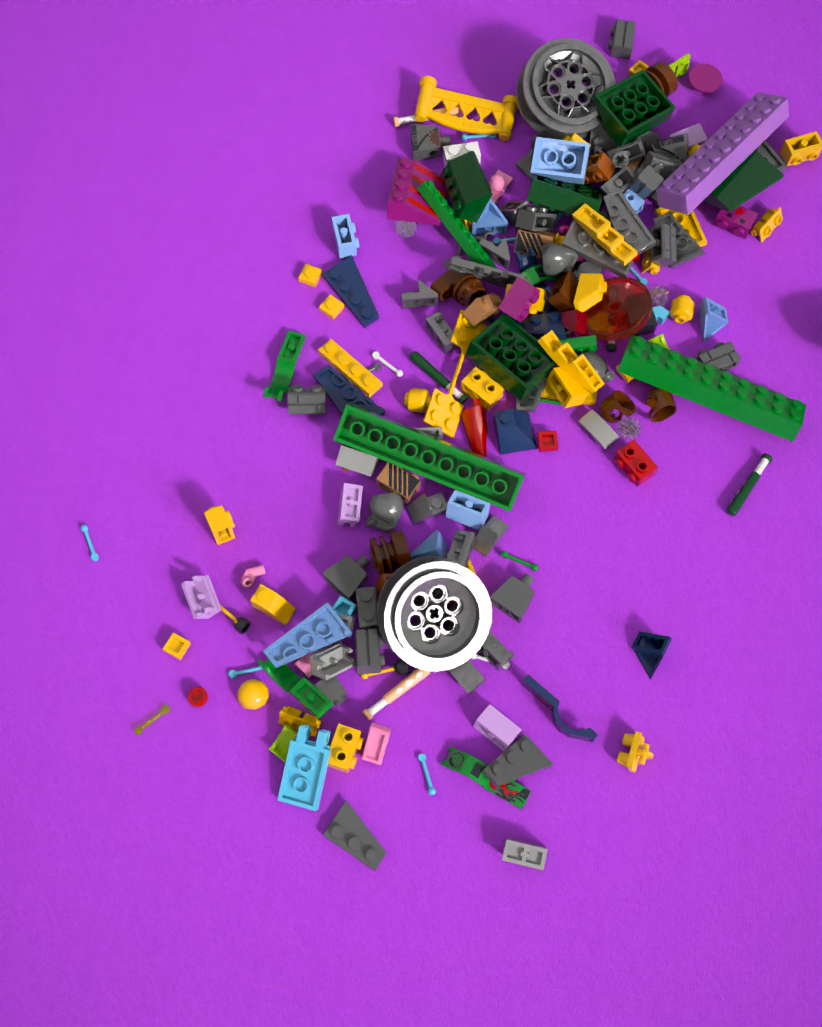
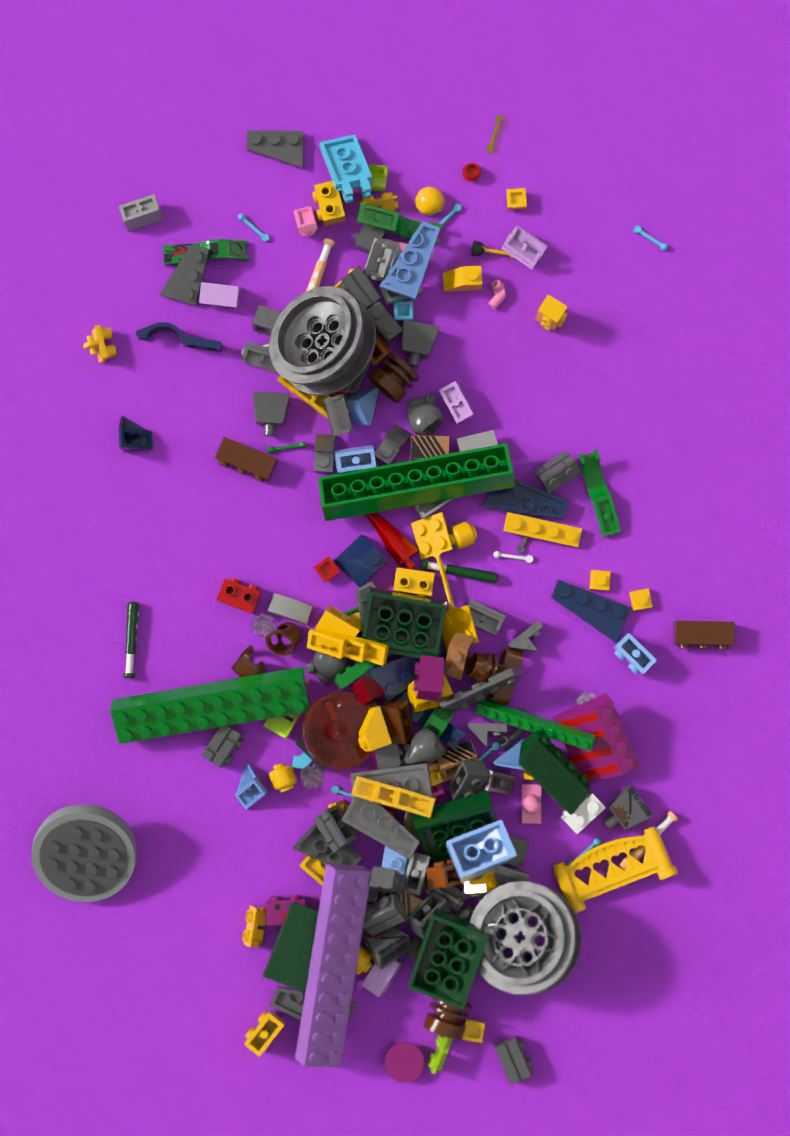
camera: 155 degrees right, 15 degrees up
(280, 222) = (704, 634): none -> reddish brown brick
(562, 568) = (246, 460): none -> reddish brown brick
(621, 164) = (423, 894): clear bush -> none

